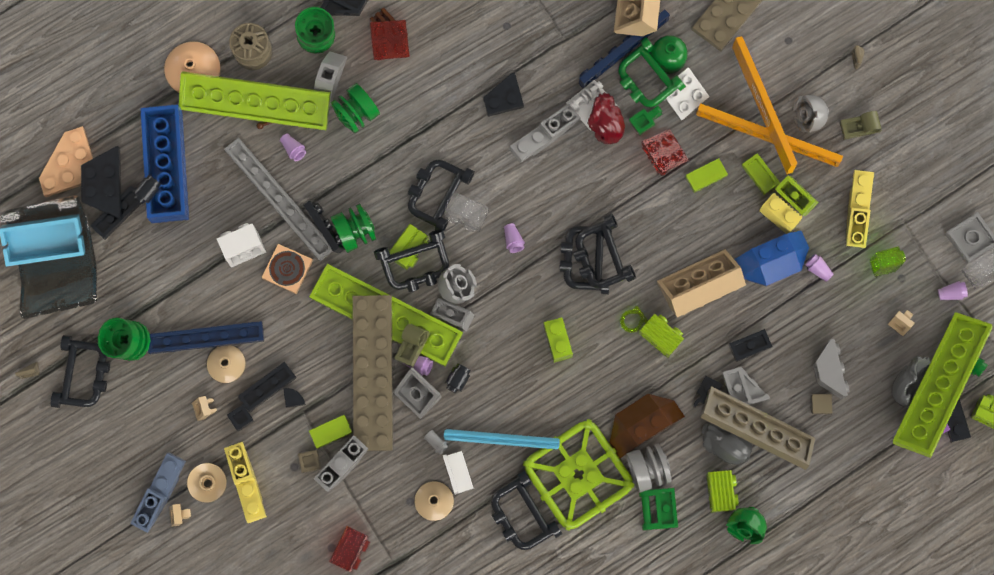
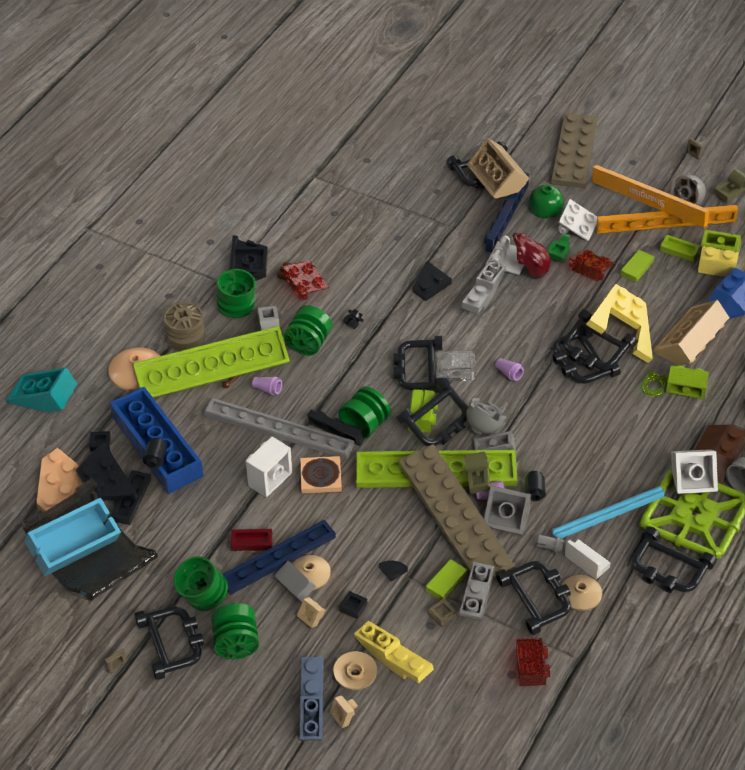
camera: 30 degrees left, 30 degrees down
(98, 55) = (43, 390): none -> teal slope
(120, 137) = (97, 438): none -> black plate
(128, 399) = (234, 631): none -> green wheel
(195, 307) = (251, 539): none -> dark red tile
(206, 369) = (295, 581): none -> light grey slope
(267, 387) = (362, 568): black plate -> none
(411, 108) = (354, 315): none -> black plate
(413, 495) = (551, 577): none -> black bar
(558, 339) = (602, 420): lime brick -> none
(598, 439) = (694, 471): none -> white slope
(661, 230) = (629, 310): none -> light yellow wing
(672, 84) = (524, 201): green bar -> none

